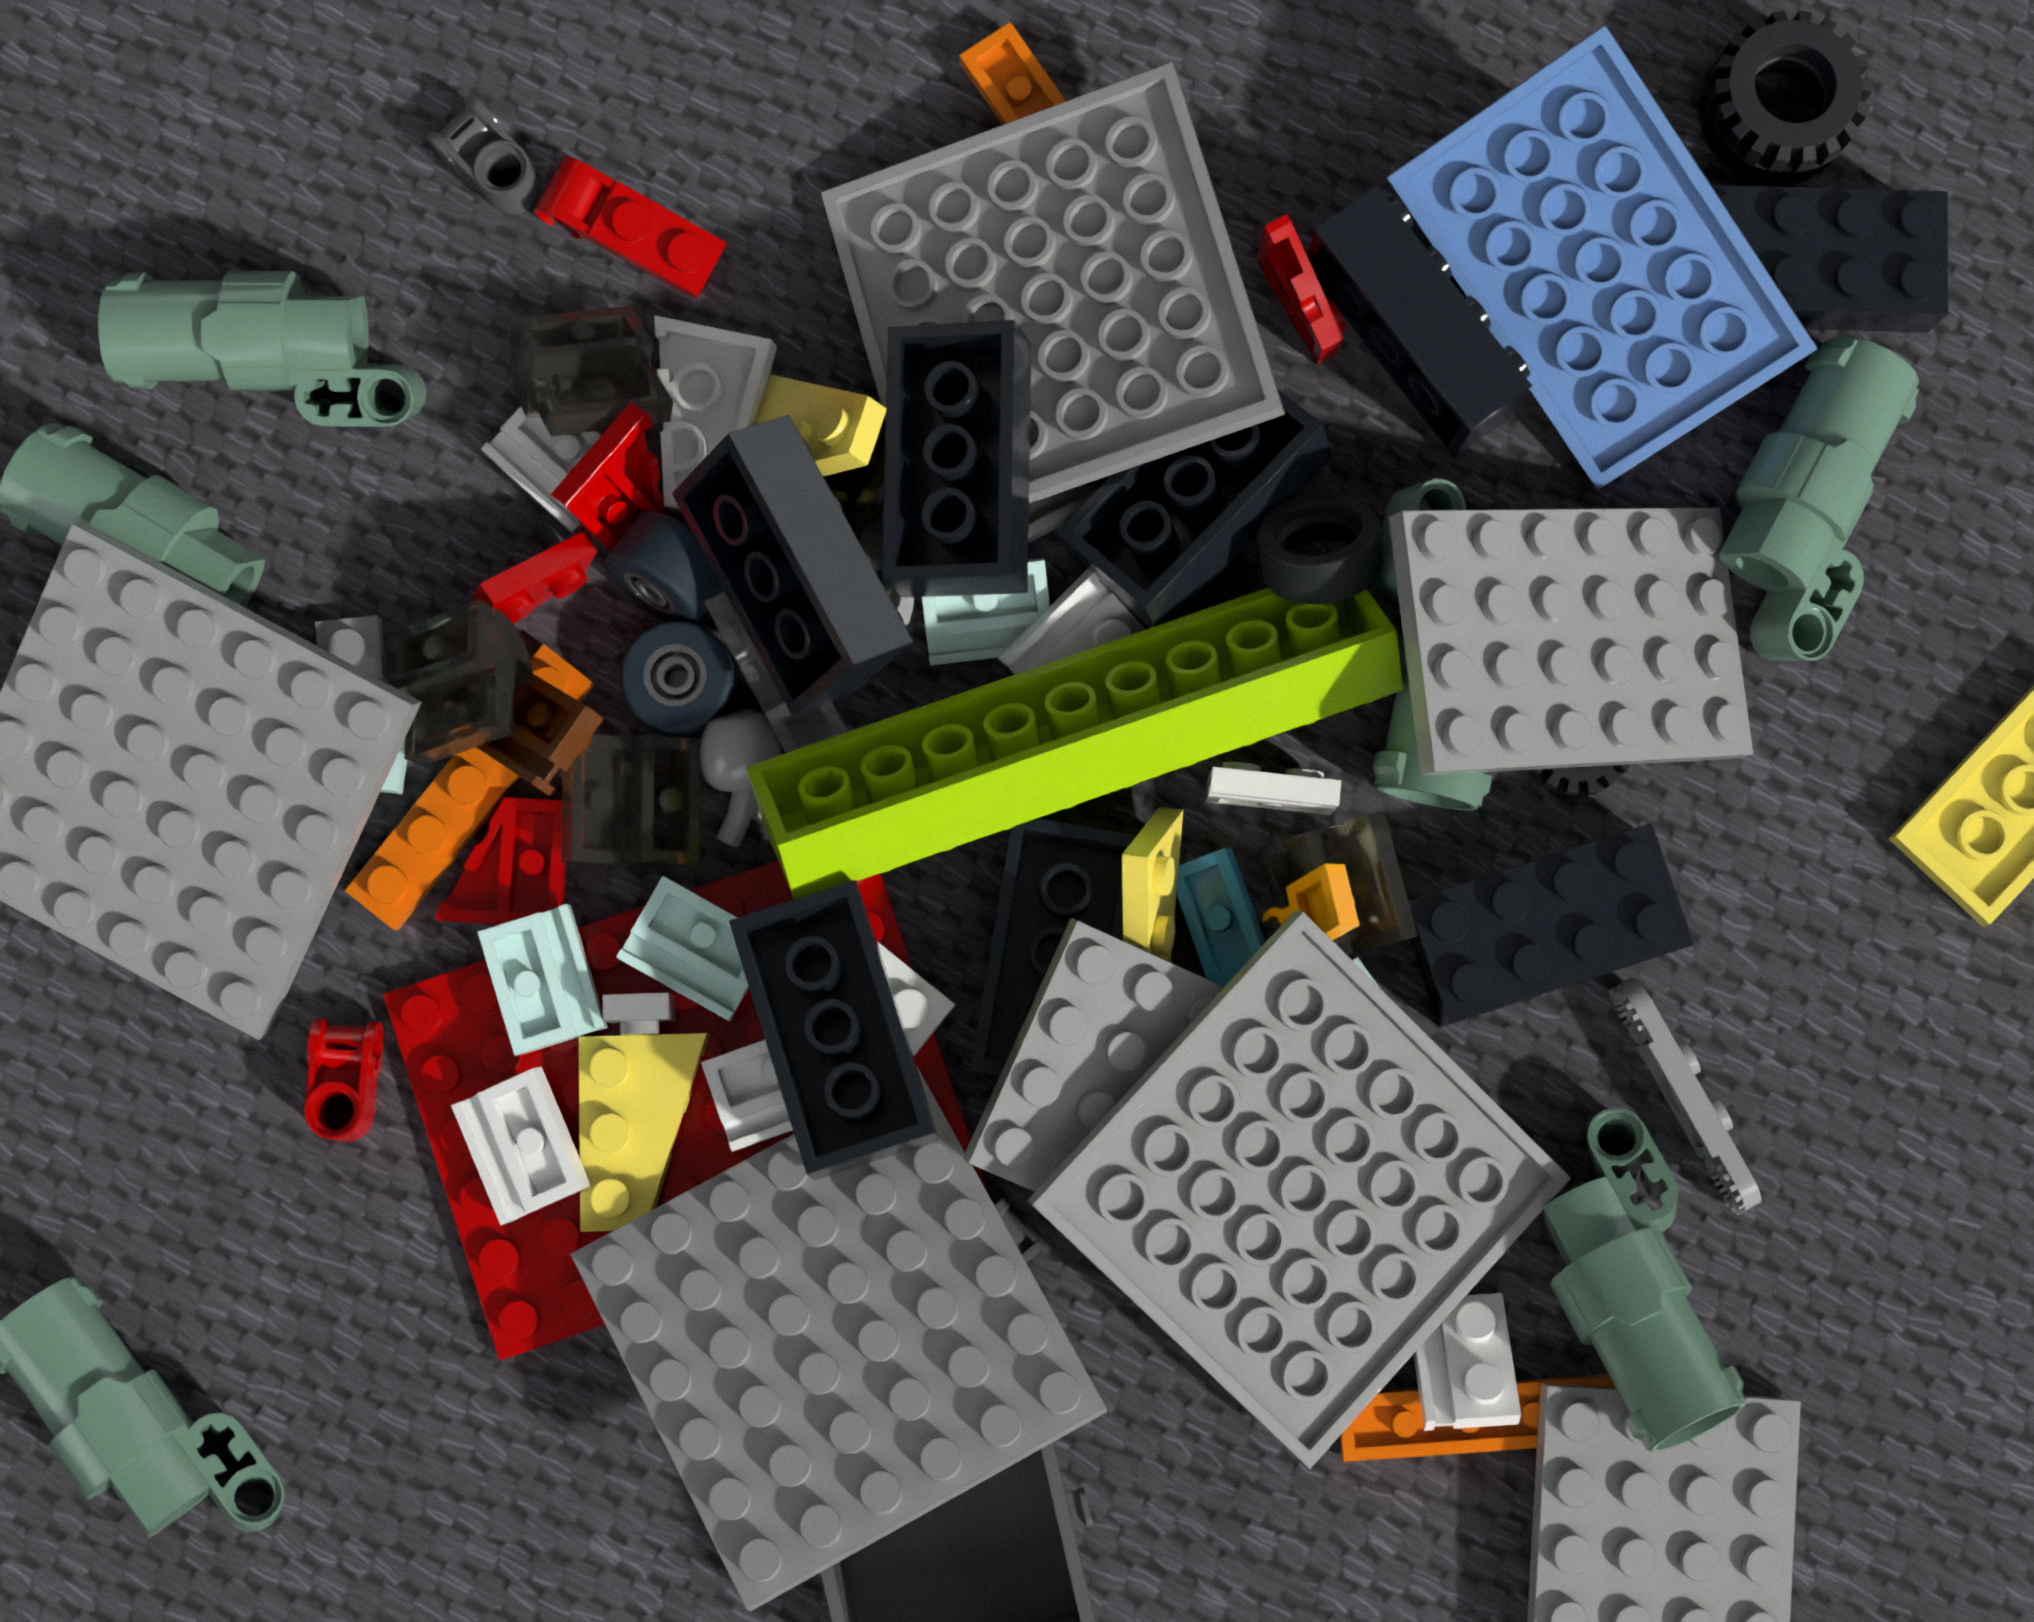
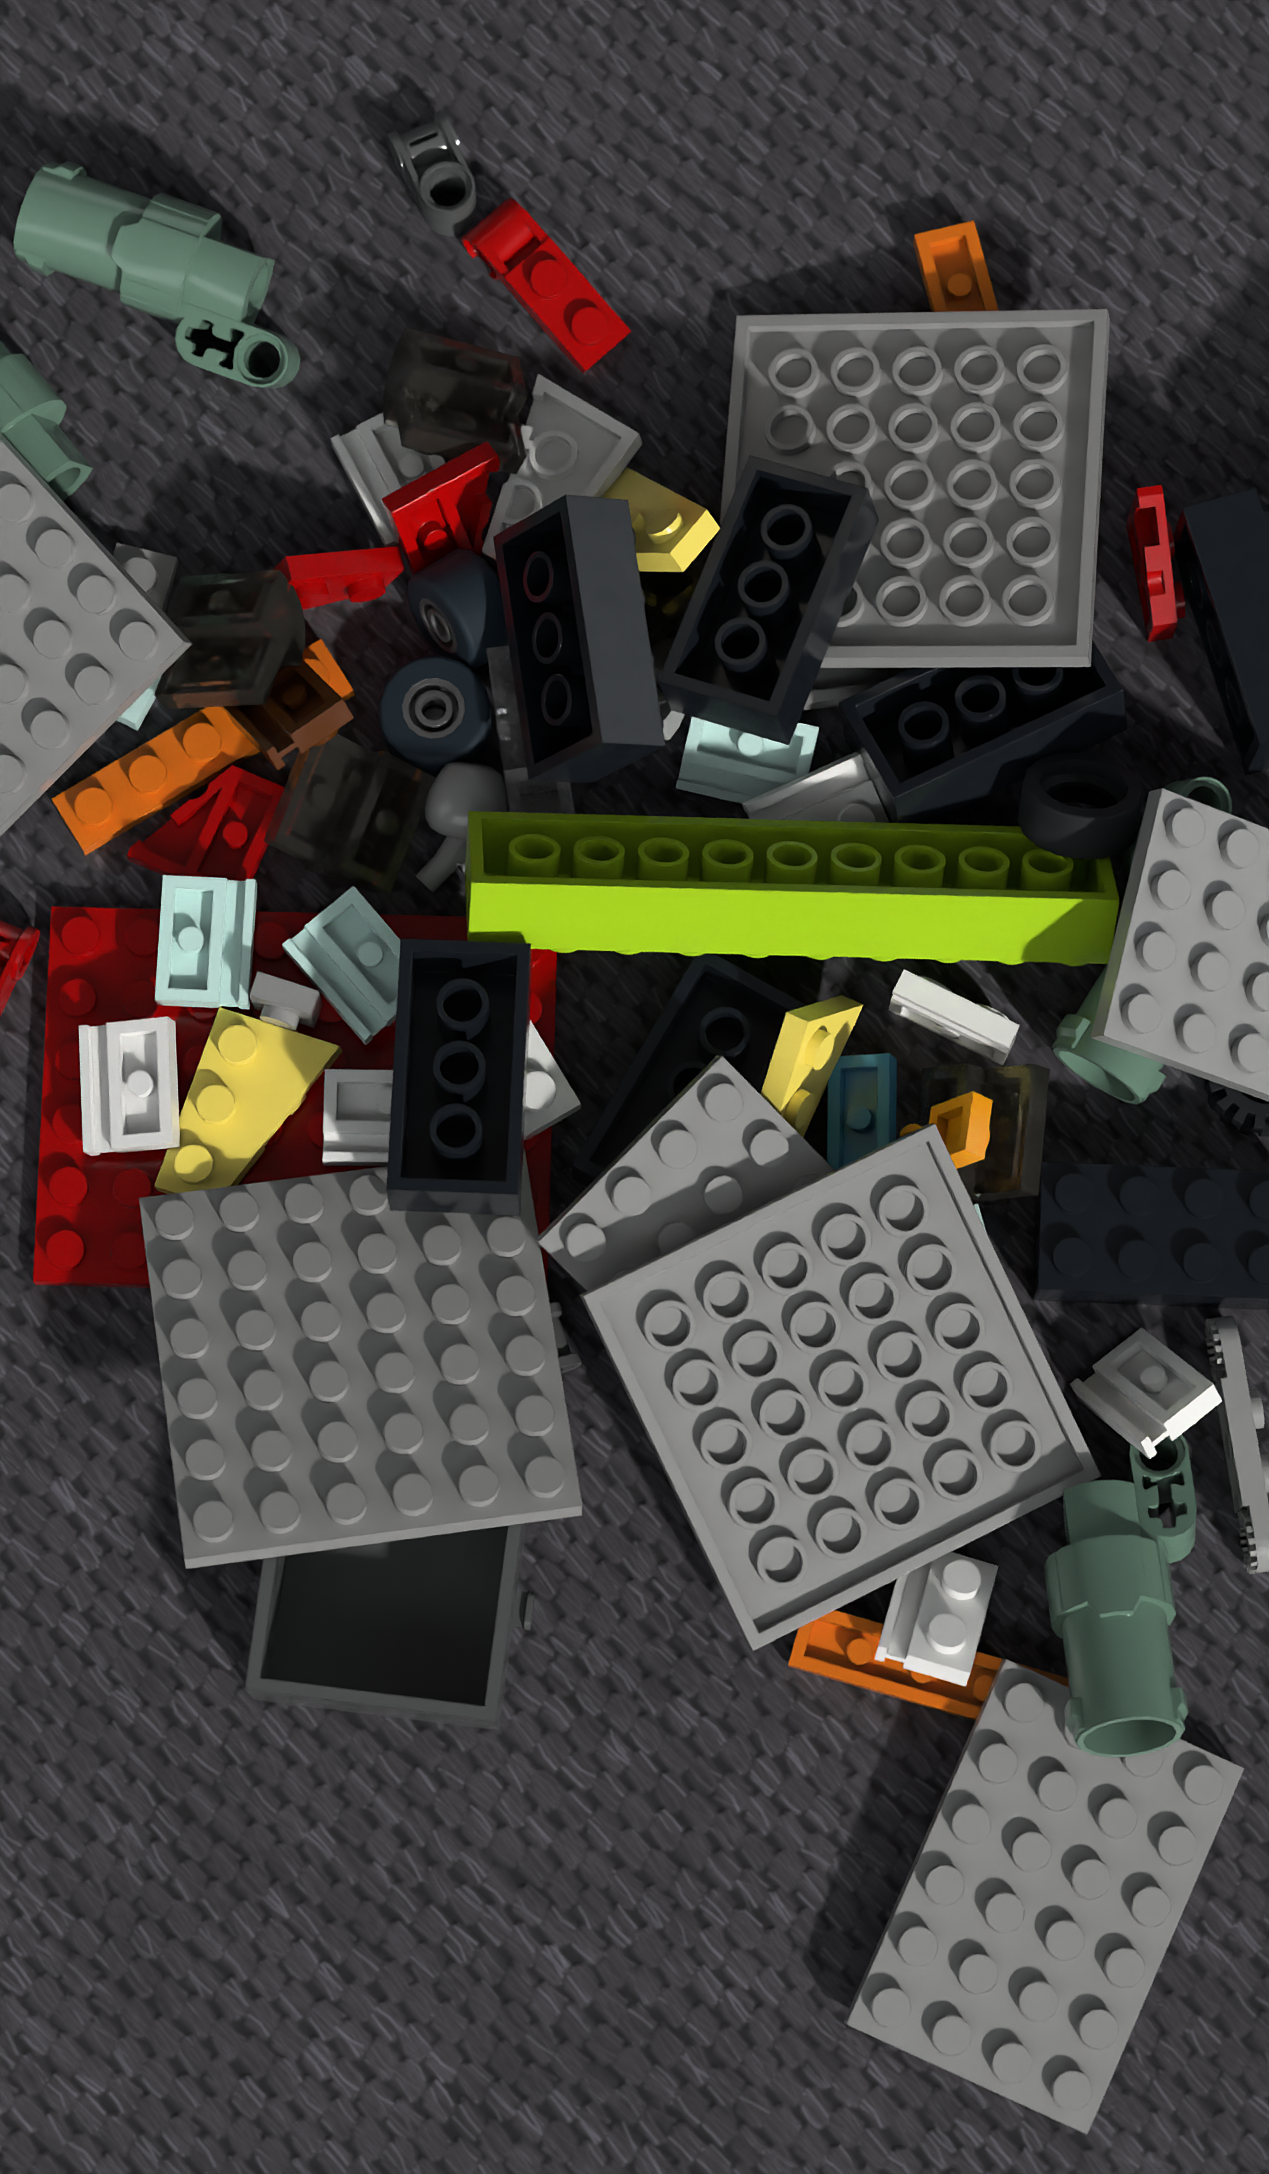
camera: 20 degrees right, 5 degrees down
(1583, 1082) = (1146, 1392): none -> white plate

